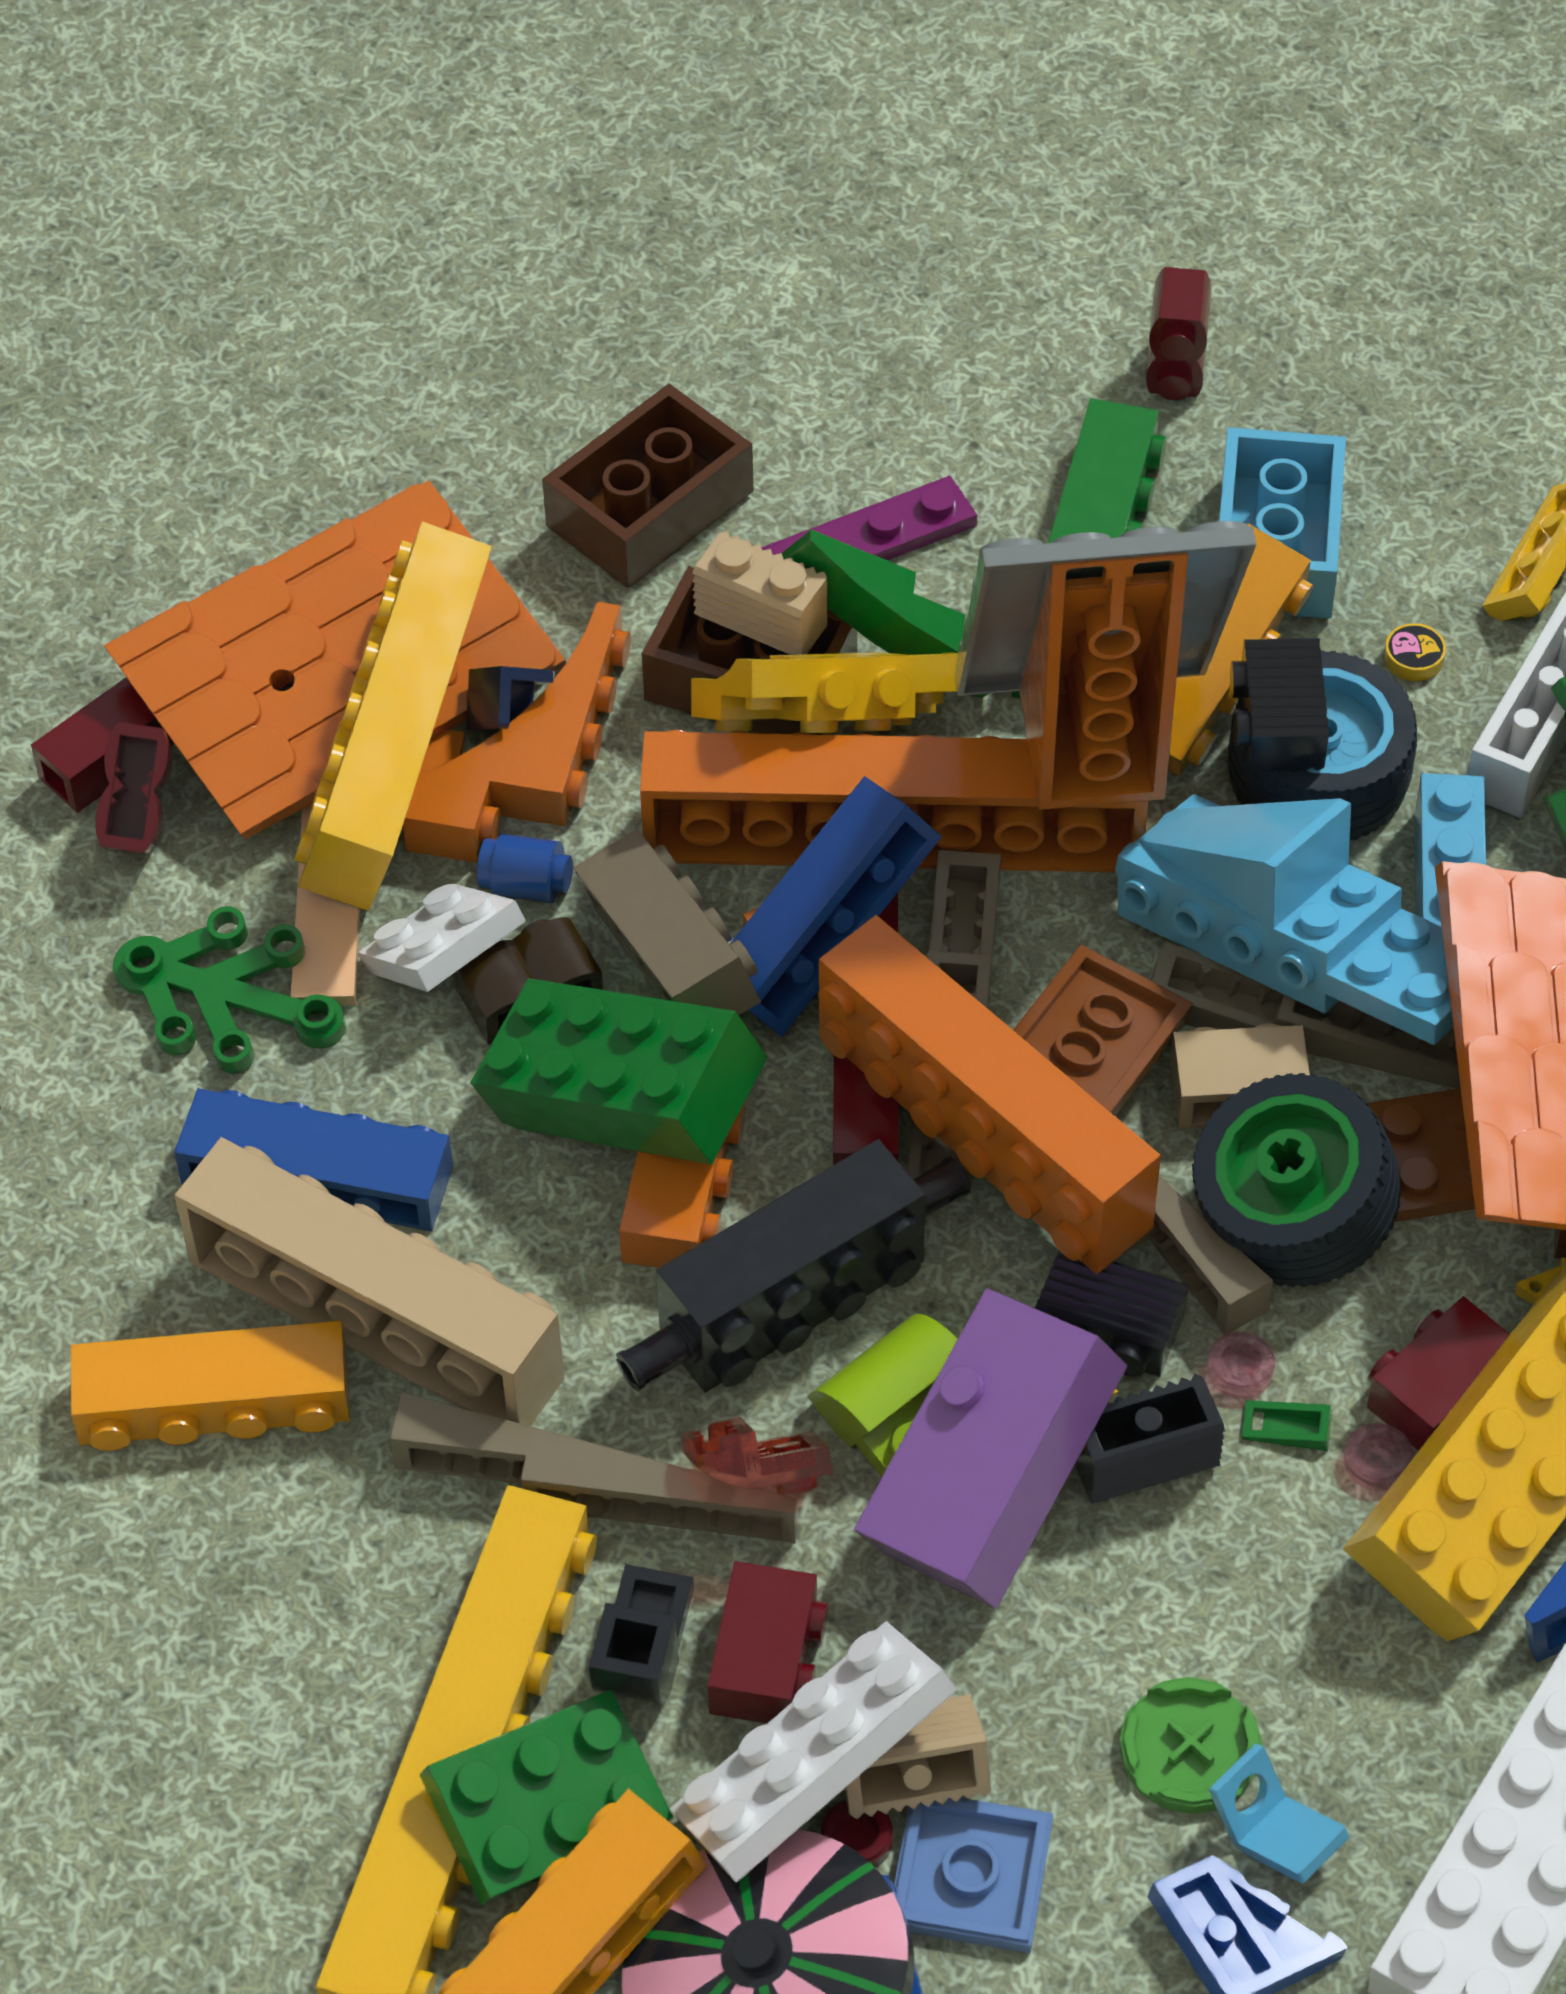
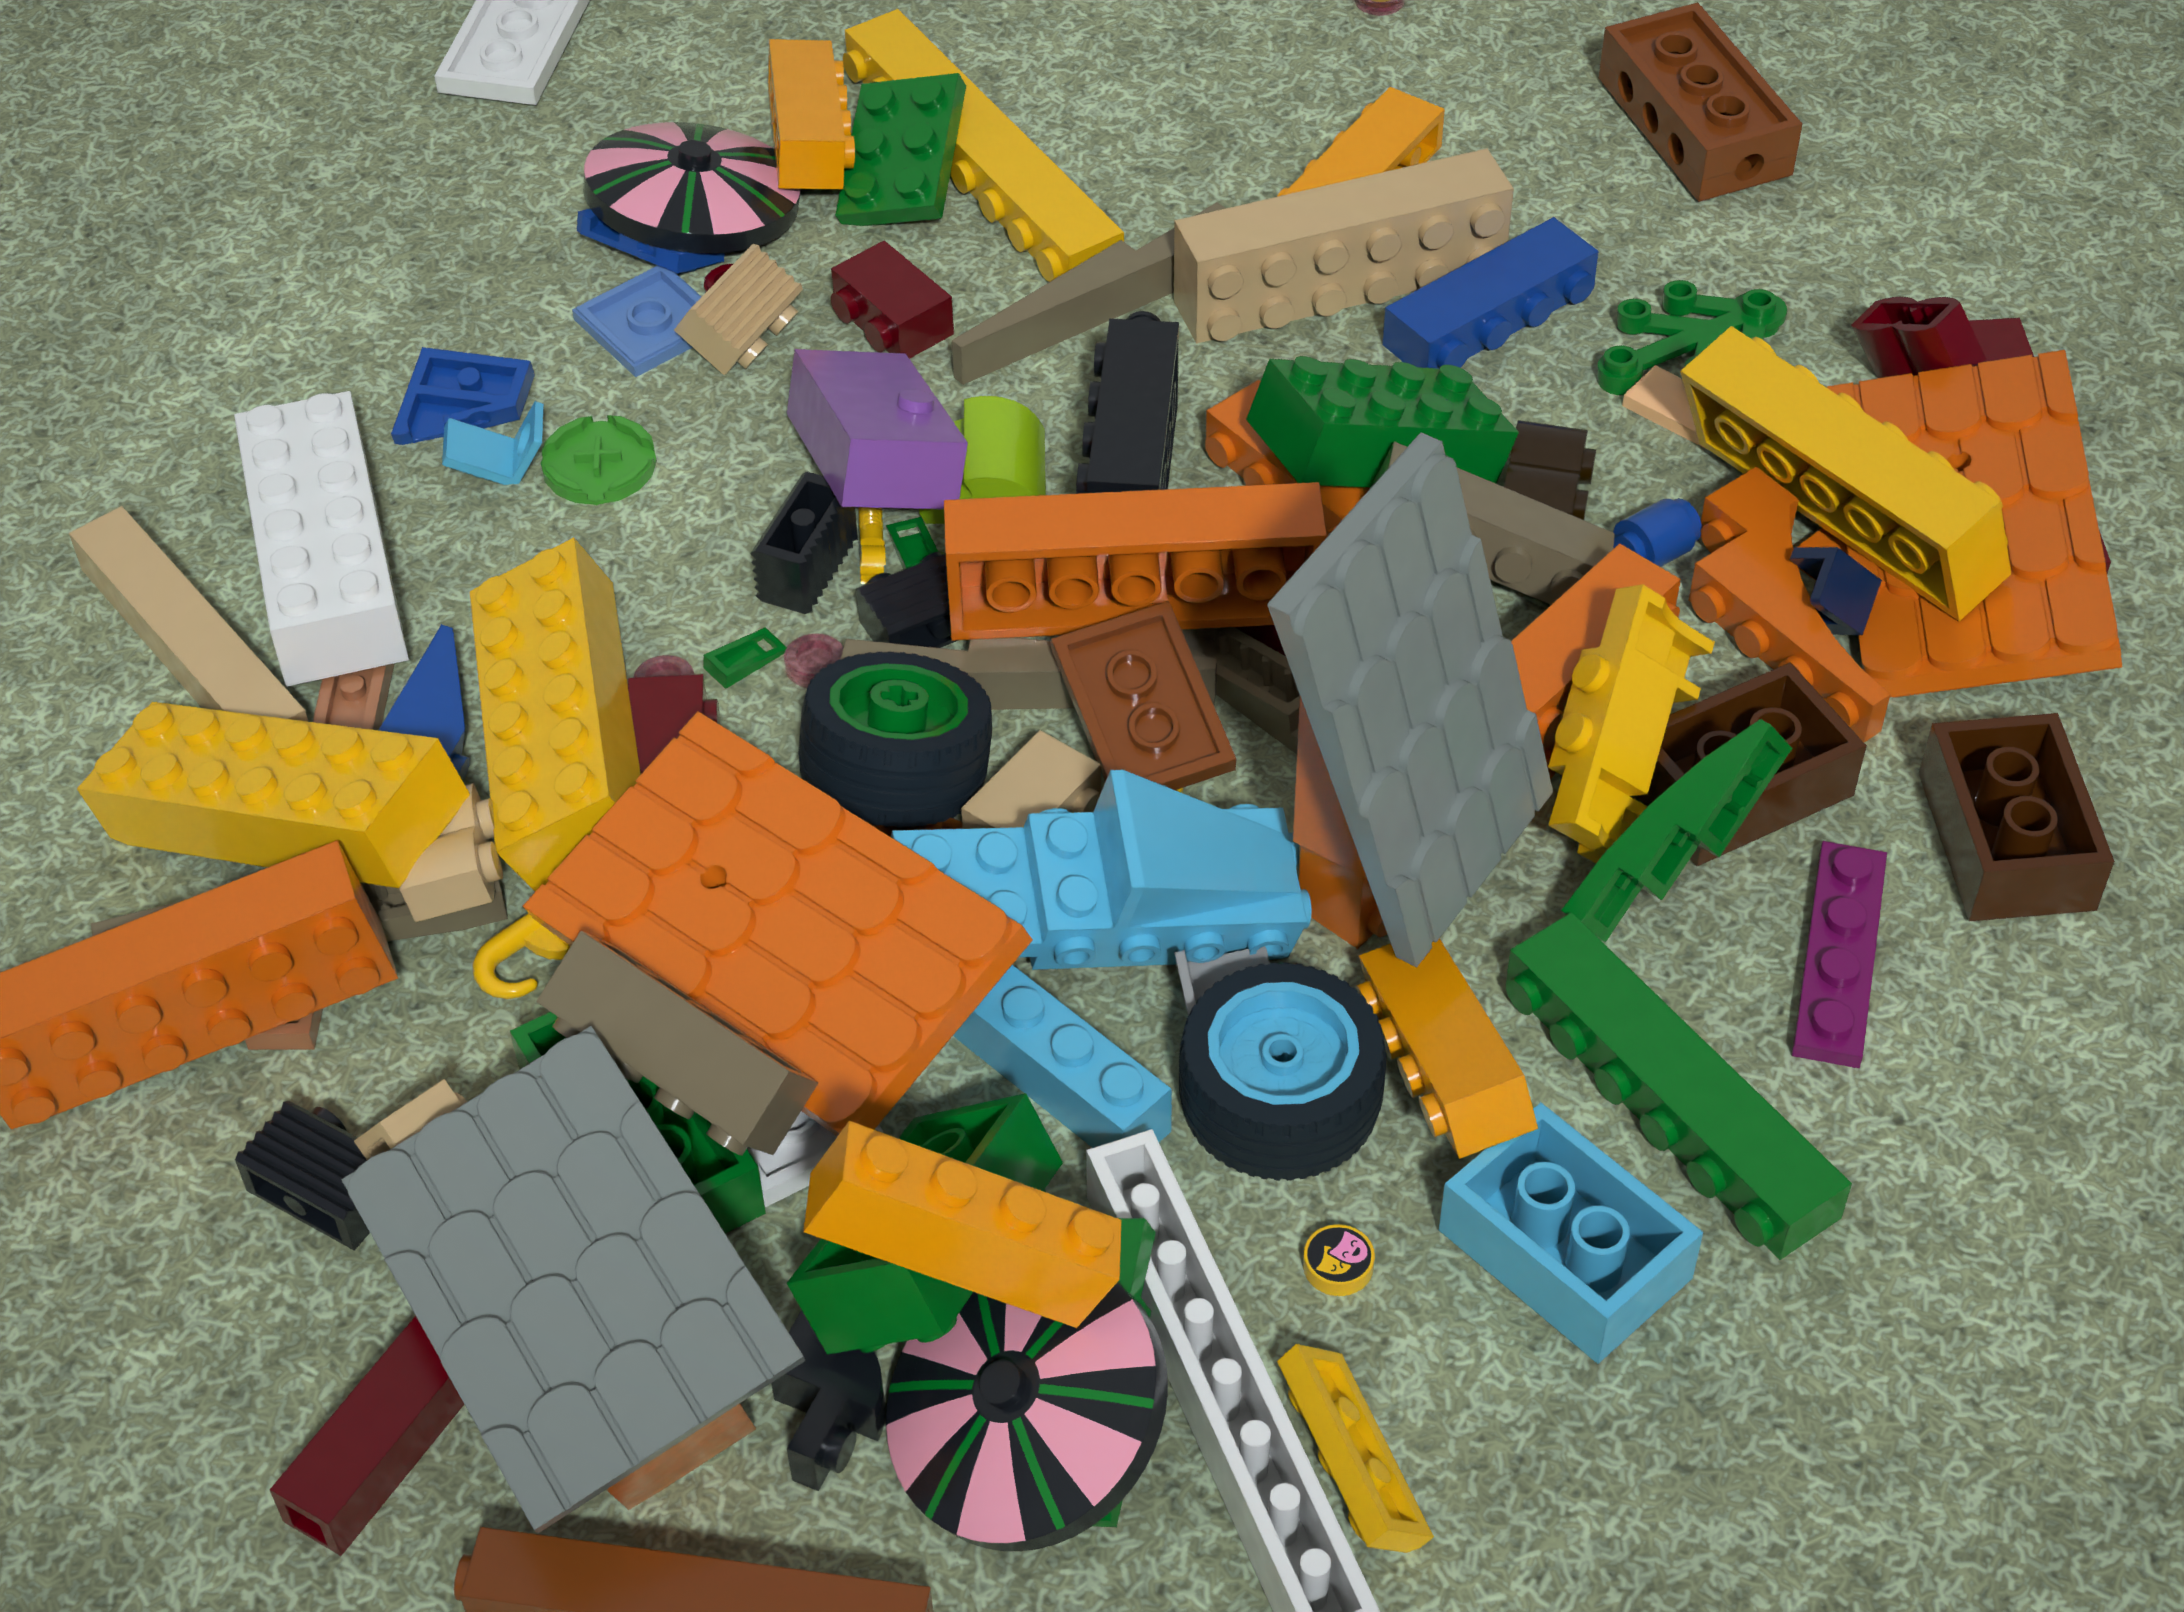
camera: 130 degrees right, 5 degrees down
(440, 936) = (1621, 440): white plate -> none
(641, 1635) = (946, 239): black brick -> none
(742, 1461) = (1012, 344): clear red slope -> none
(760, 594) = (1796, 705): tan brick -> none
(812, 1749) = (780, 241): white plate -> none
(1178, 333) = (1880, 1312): dark red brick -> none
(1282, 703) = (1314, 988): black brick -> none

